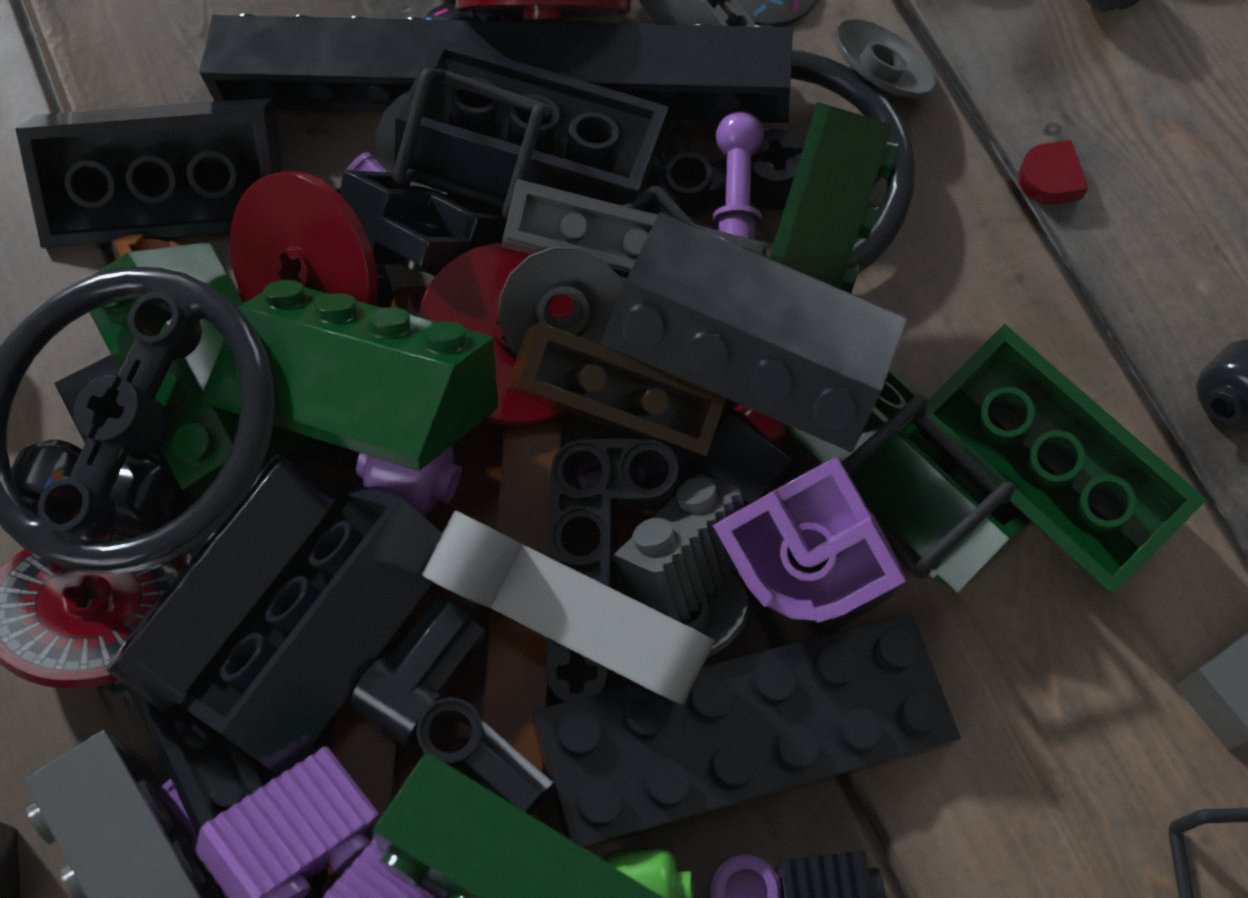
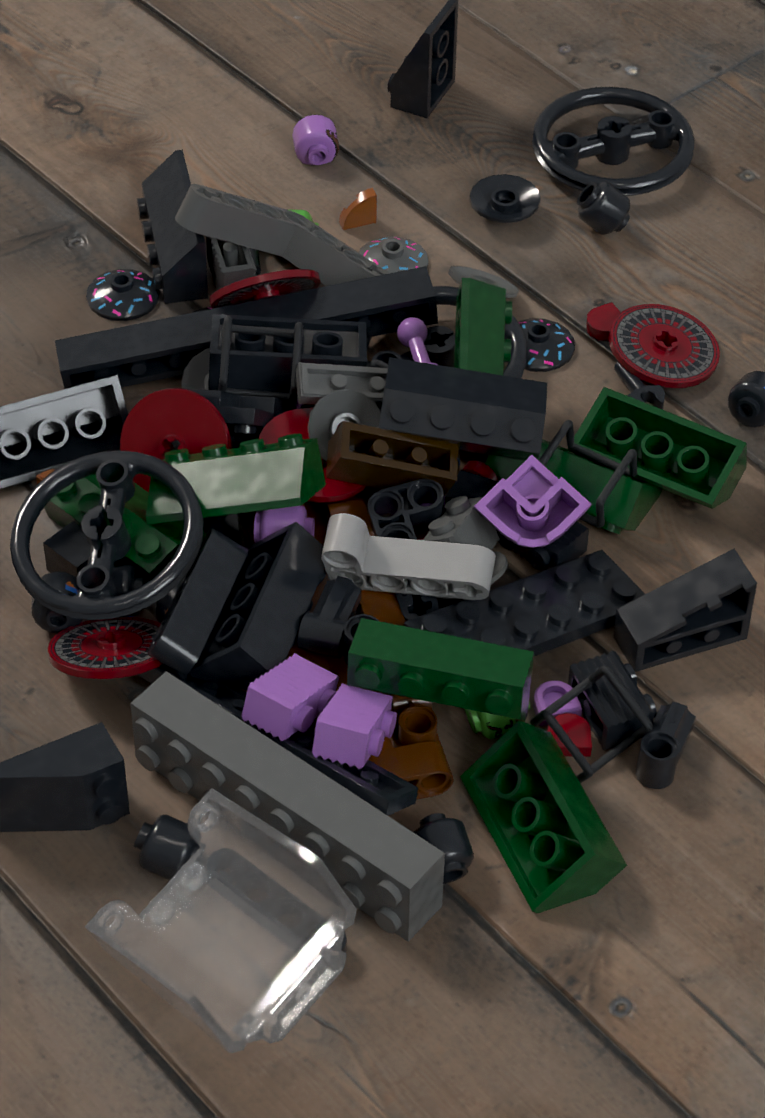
camera: 15 degrees left, 20 degrees down
(947, 203) = (547, 345): none -> black dish
(1009, 799) = (688, 614): none -> black wedge
(1065, 316) = (651, 394): none -> black bar
(1097, 262) = (664, 345): none -> piece

